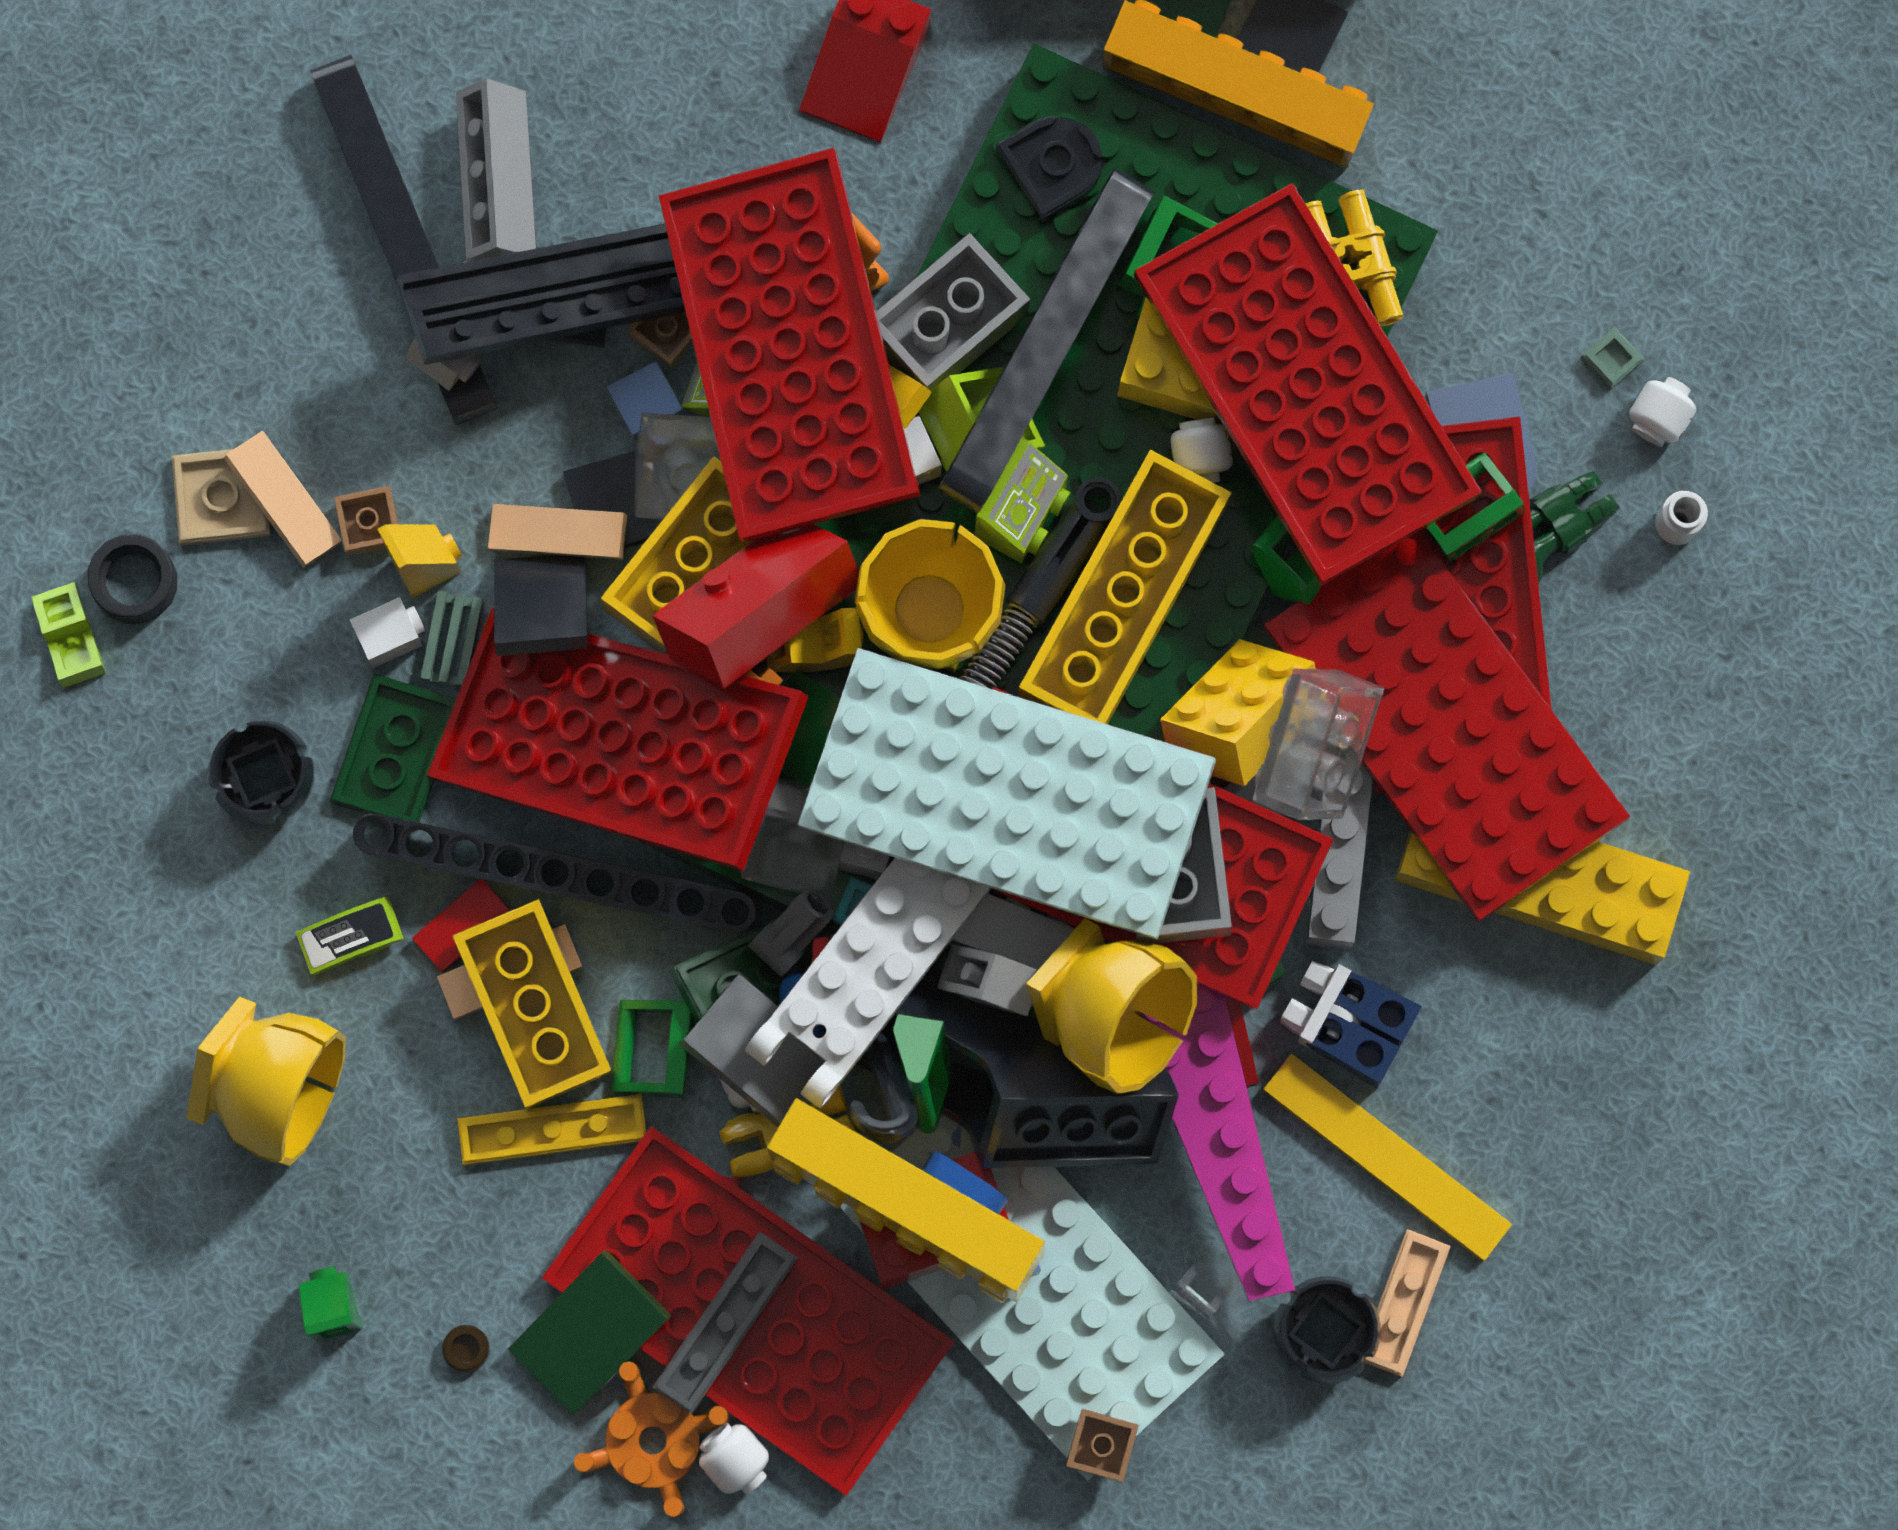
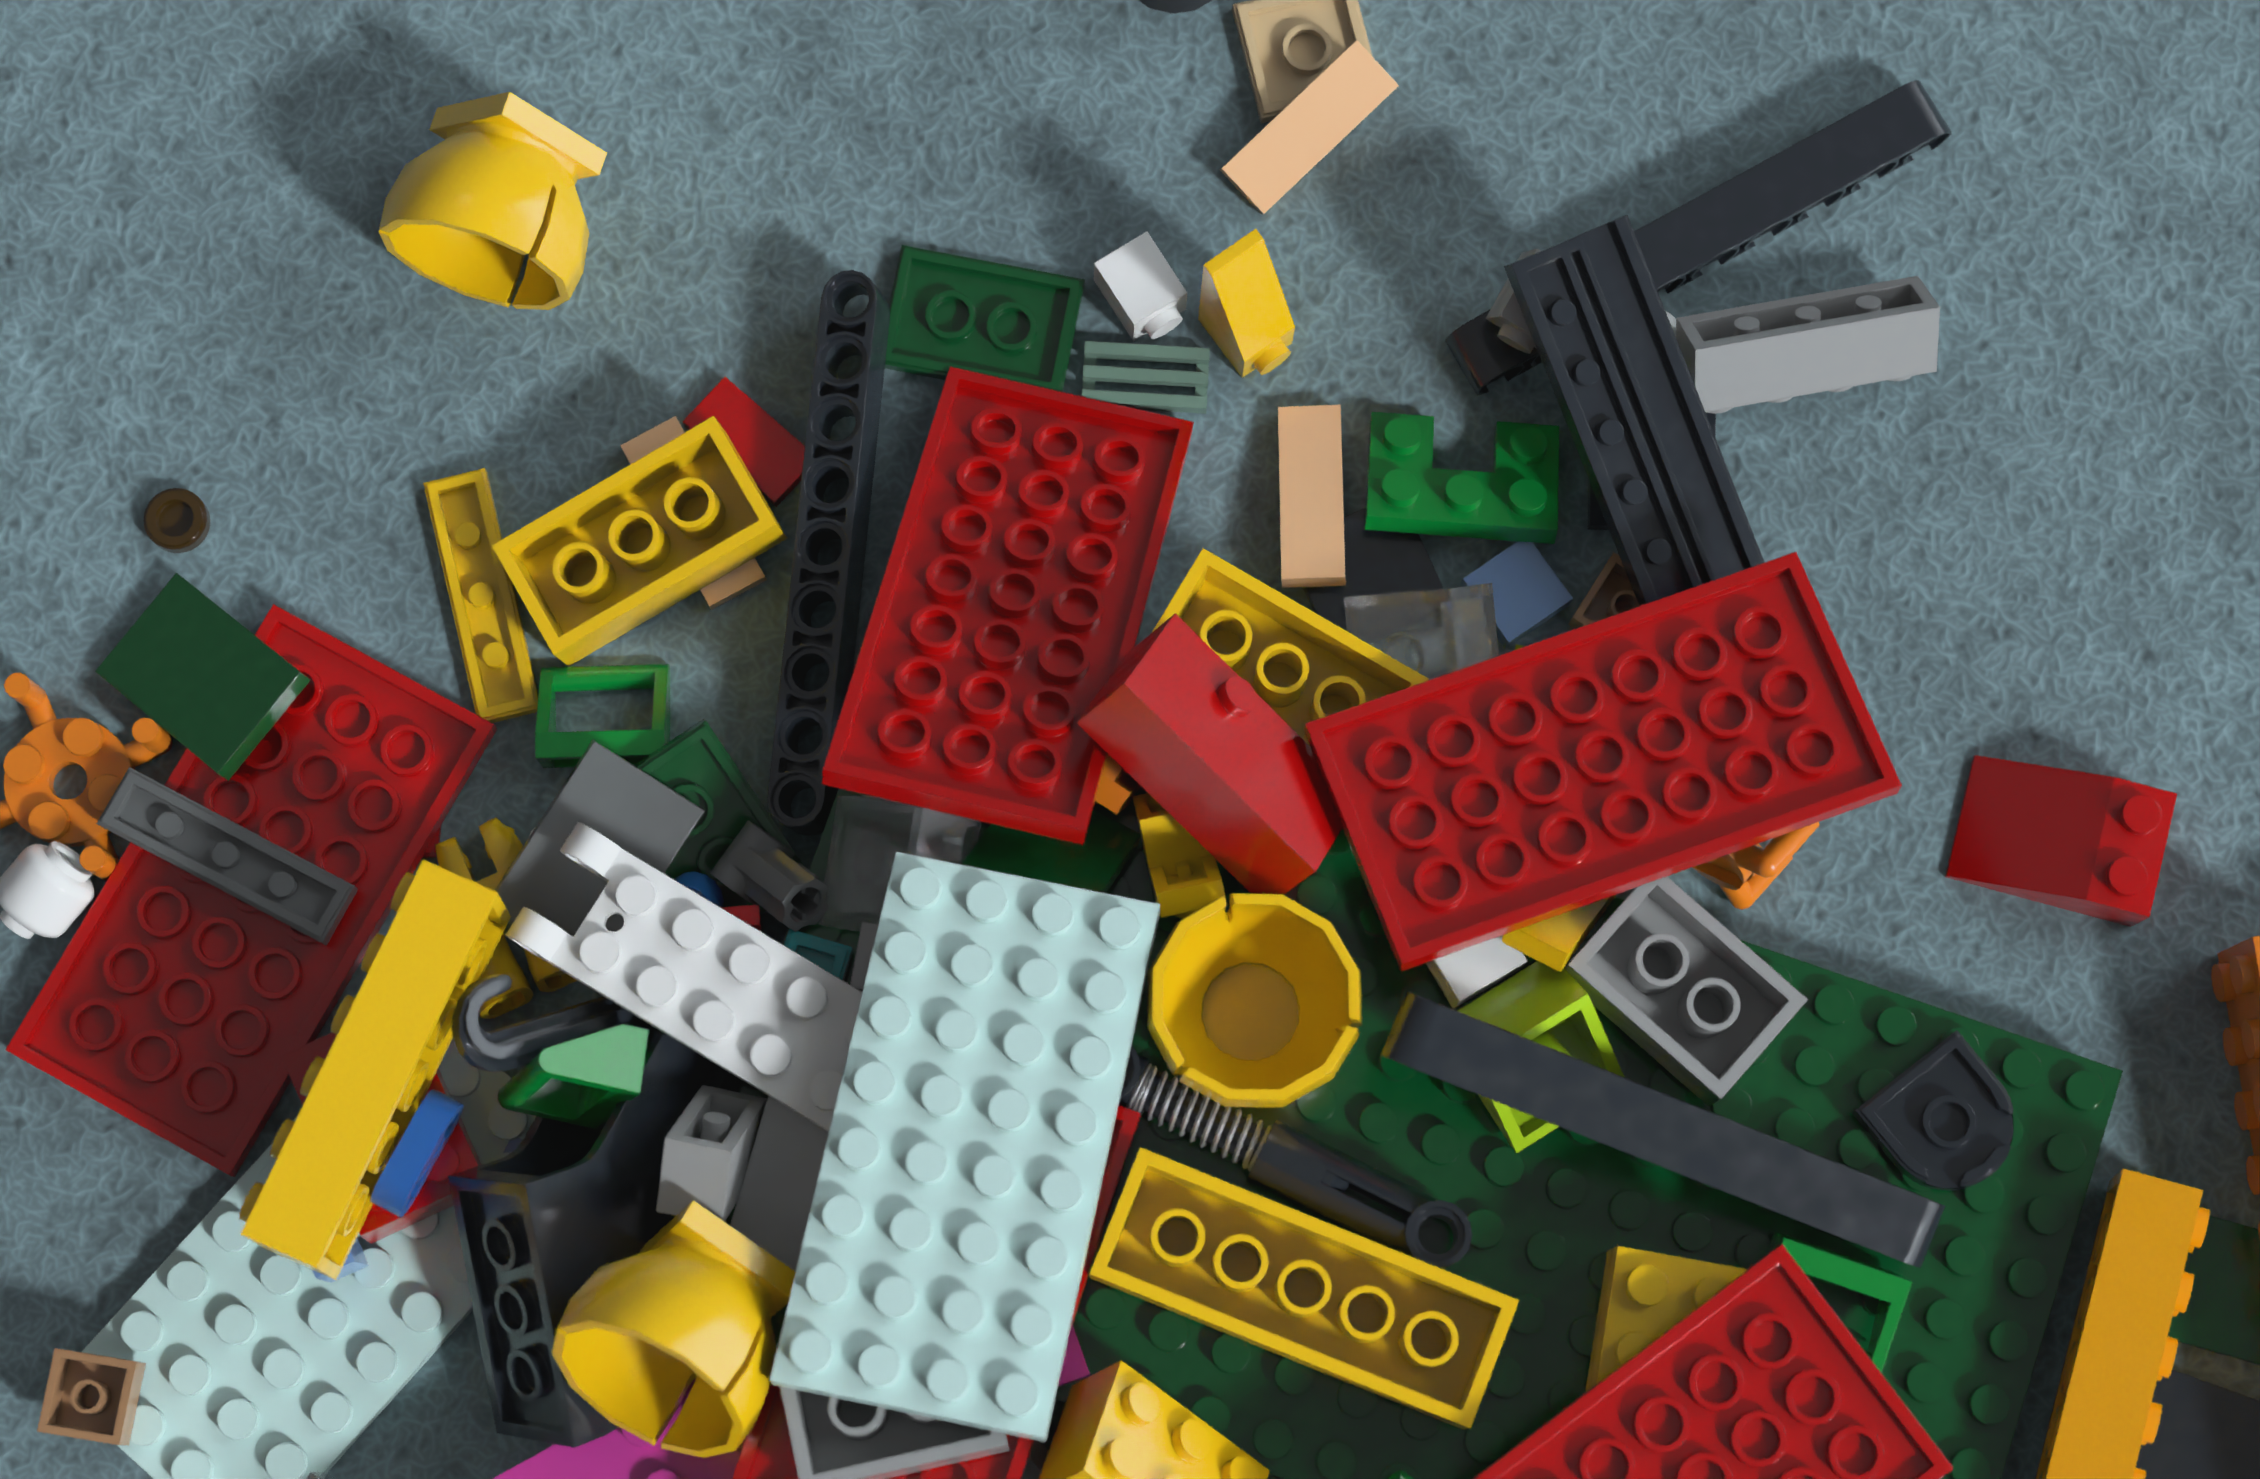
camera: 85 degrees right, 0 degrees up
(247, 746) = (905, 110): black piece -> none
(328, 1304) = (209, 329): green slope -> none
(349, 935) = (719, 295): slope -> none
(362, 515) = (1299, 241): medium nougat piece -> none
(540, 604) = (1197, 480): black tile -> none
(582, 398) = (1507, 505): none -> green plate
(1022, 503) = (1420, 1125): lime slope -> none
(1202, 448) = (1536, 1379): white head -> none

